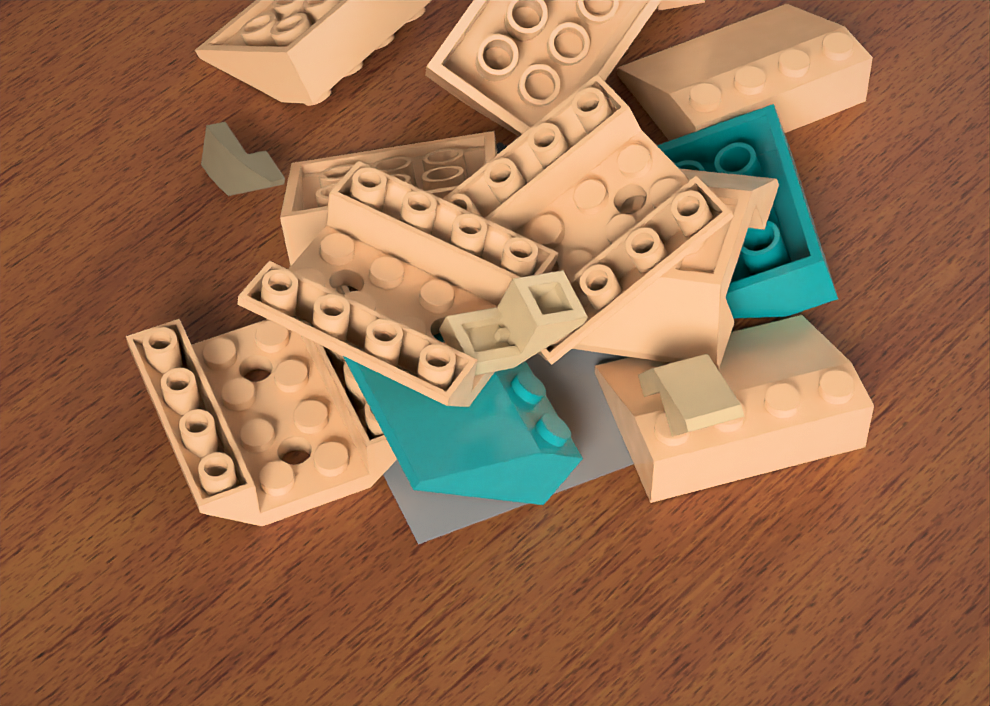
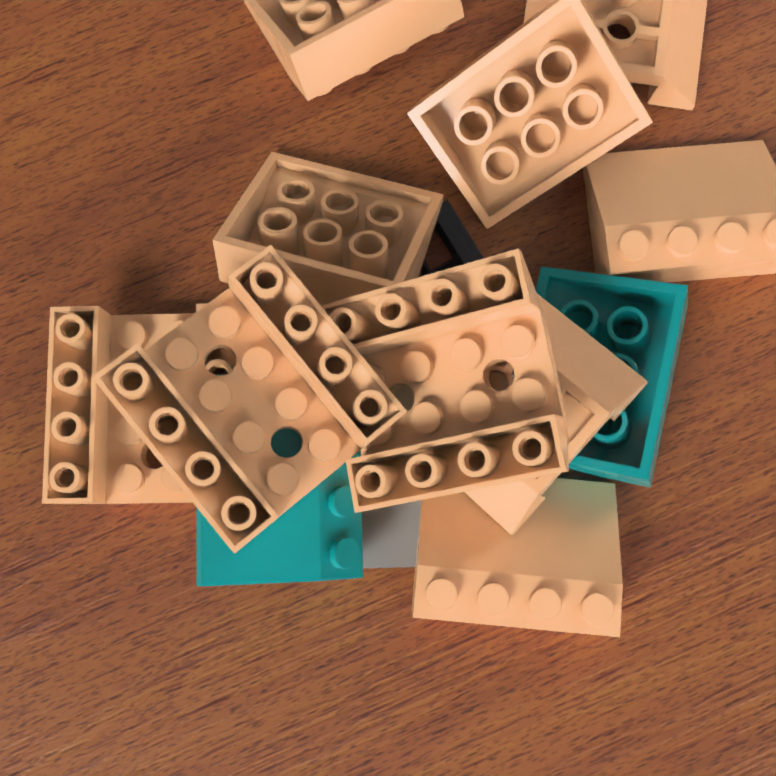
camera: 25 degrees right, 30 degrees up
(232, 167) = (224, 158): dark tan slope -> none
(527, 320) = (333, 480): tan slope -> none
(692, 394) = (465, 586): tan slope -> none

